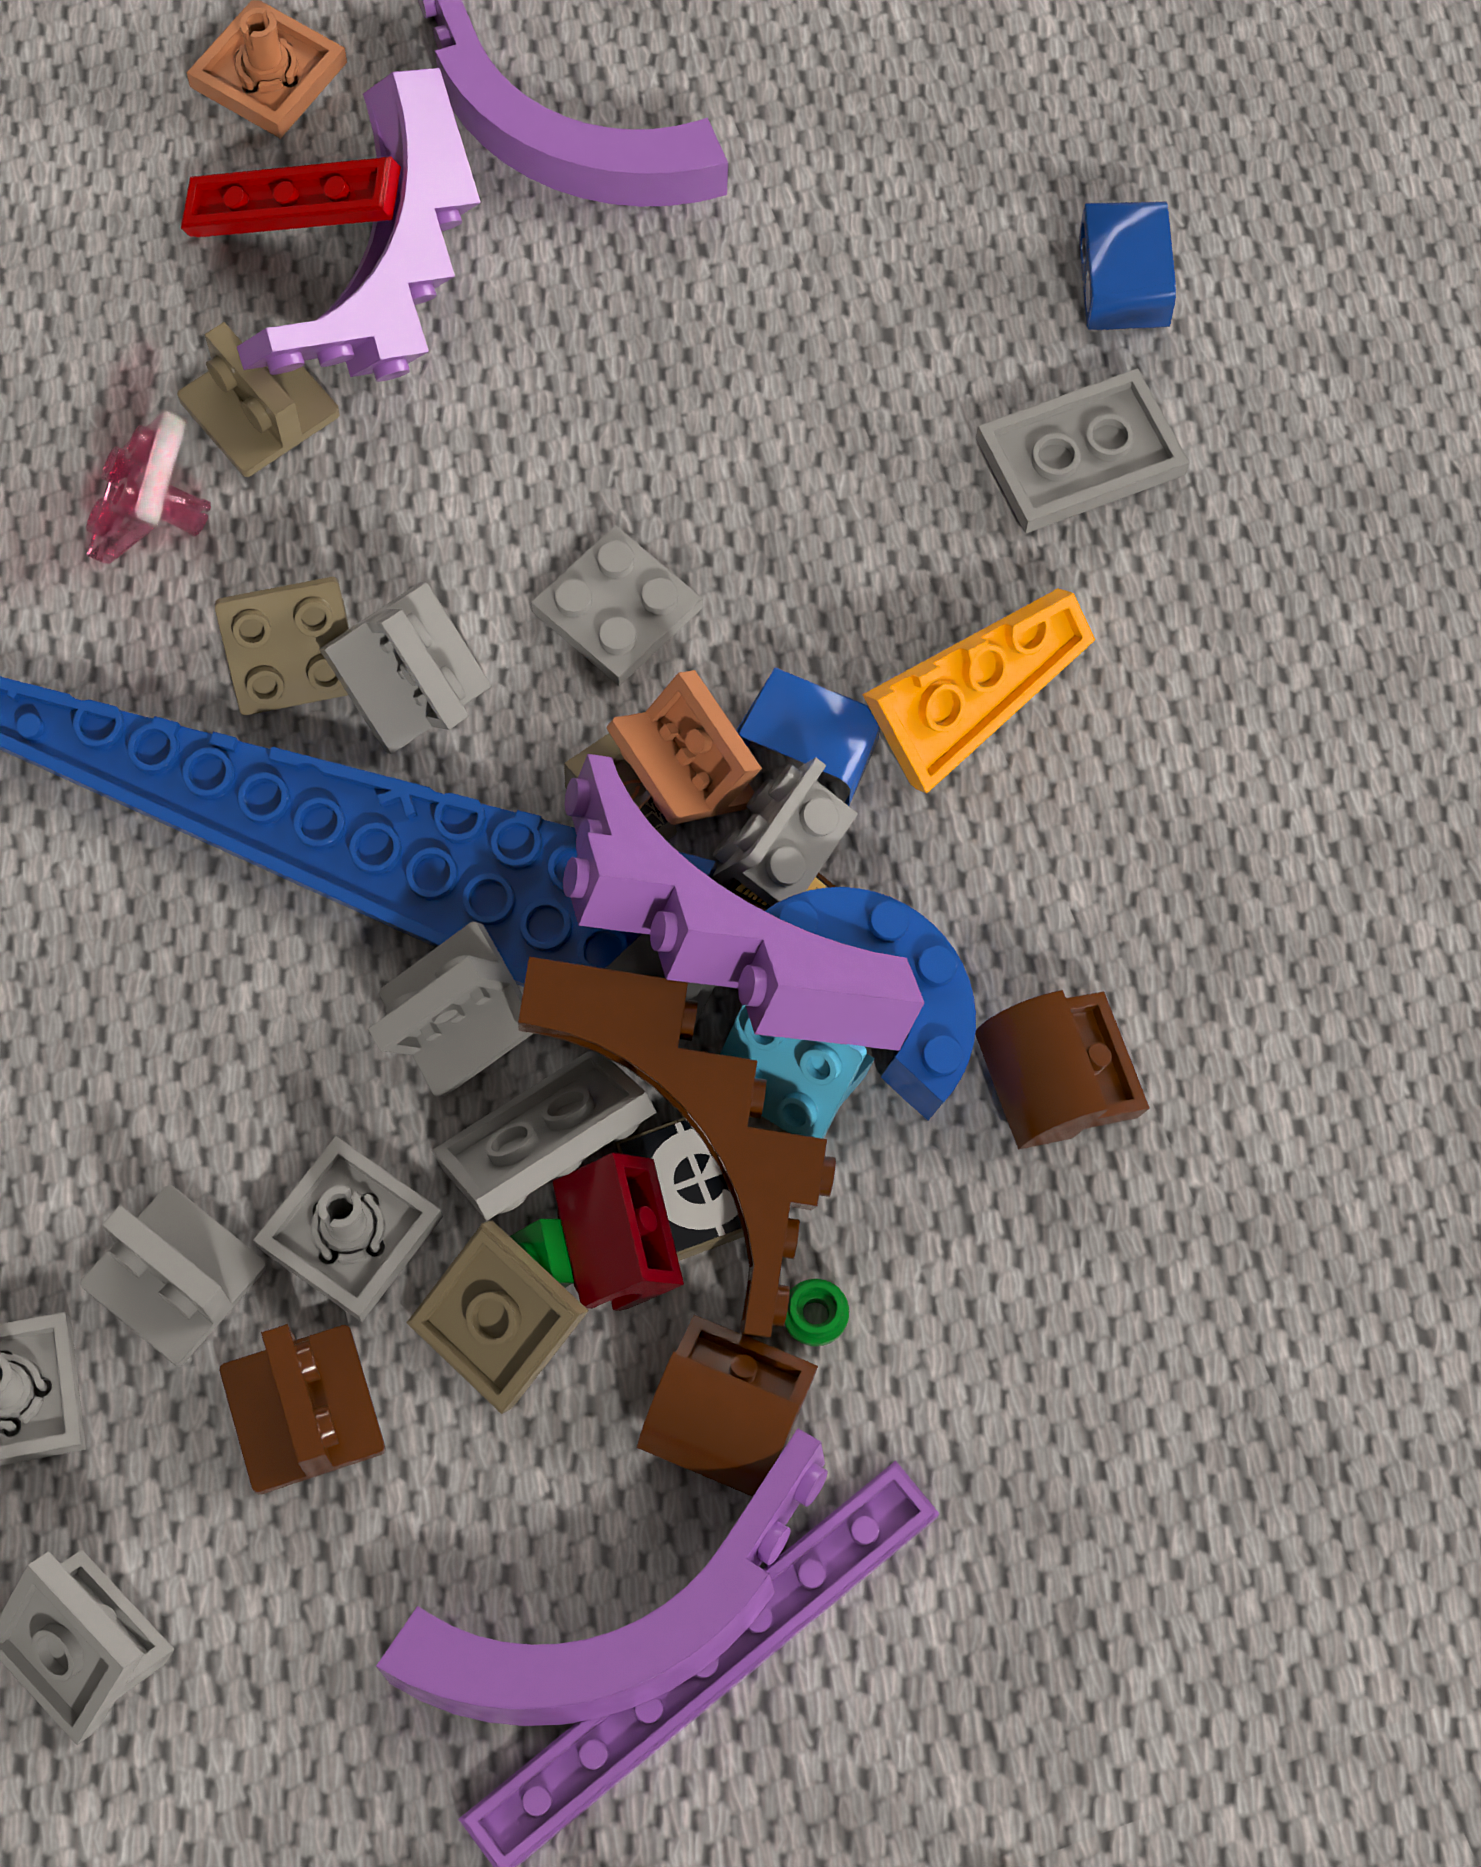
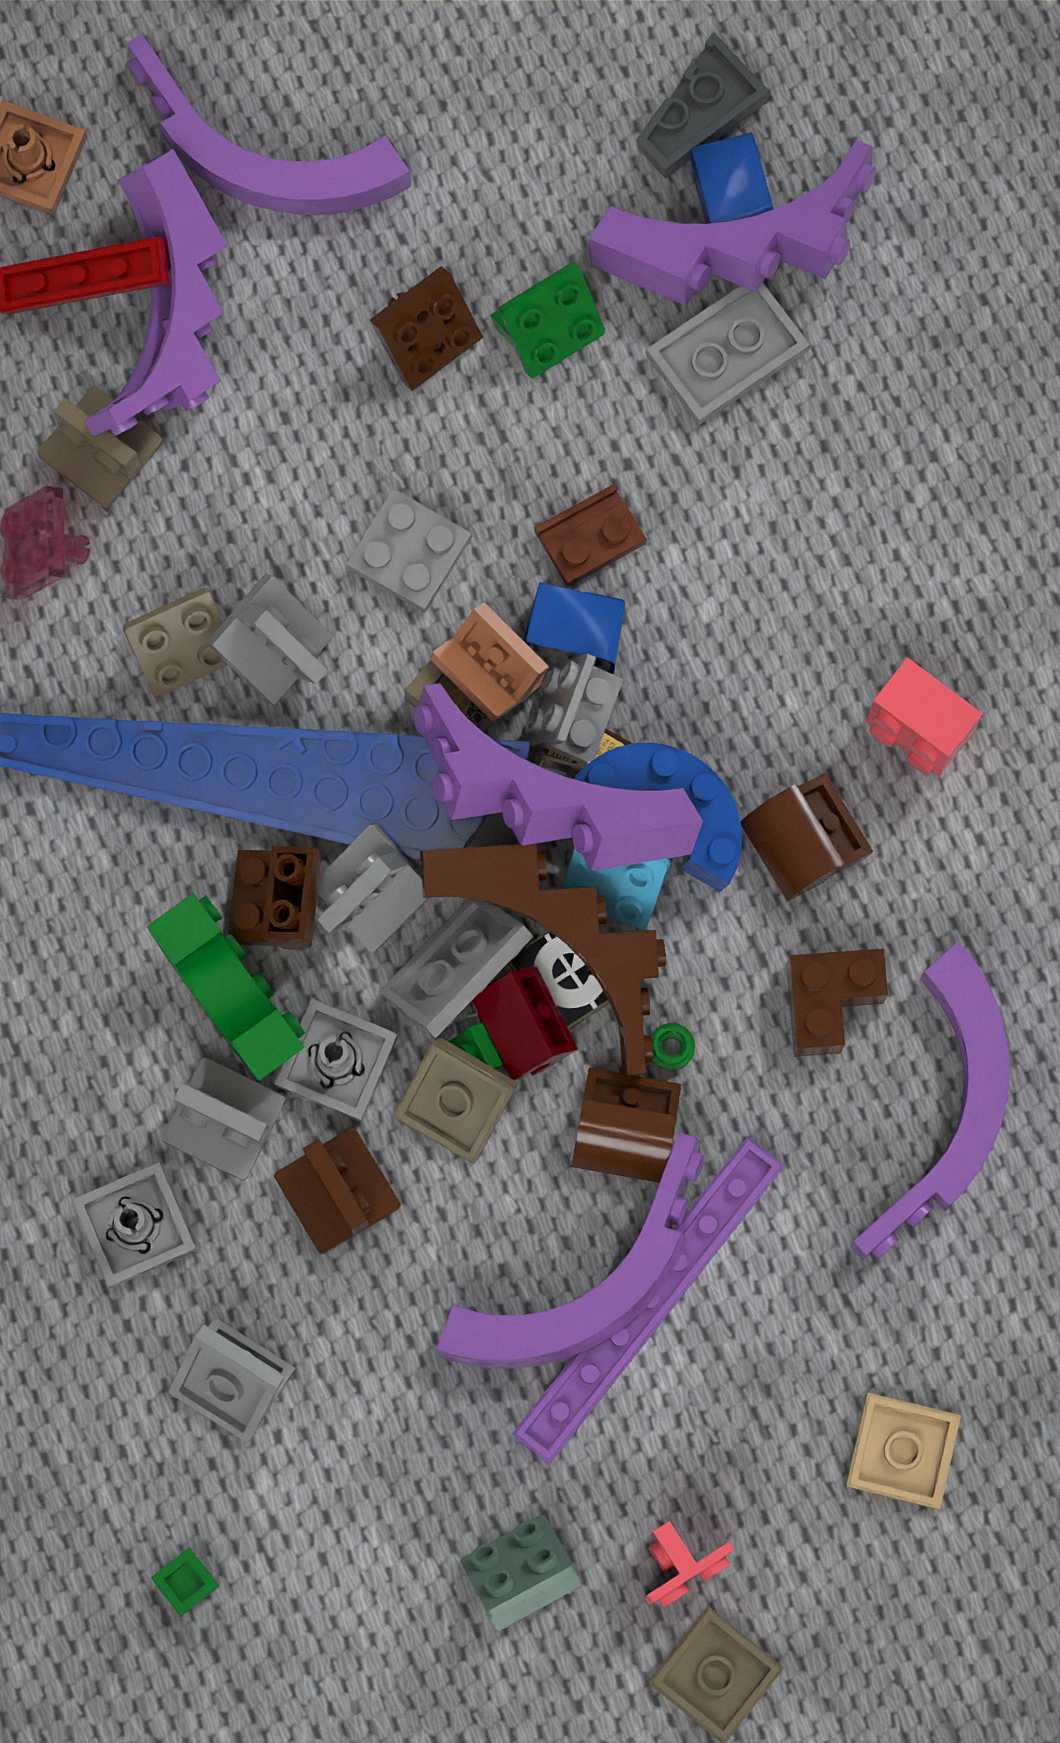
camera: 10 degrees left, 10 degrees up
(216, 1083) = (224, 987): none -> green brick
(325, 993) = (275, 897): none -> reddish brown brick
(675, 325) = (421, 322): none -> reddish brown plate
(856, 634) = (590, 535): none -> copper plate
(863, 364) = (550, 320): none -> green bracket
(968, 691) = (683, 566): light orange wing -> none
(1047, 324) = (680, 257): none -> medium lavender arch
(1051, 1271) = (823, 985): none -> reddish brown brick
(1122, 163) = (704, 107): none -> dark grey wing
(1252, 943) = (922, 718): none -> coral brick
(1254, 1431) = (985, 1060): none -> medium lavender arch

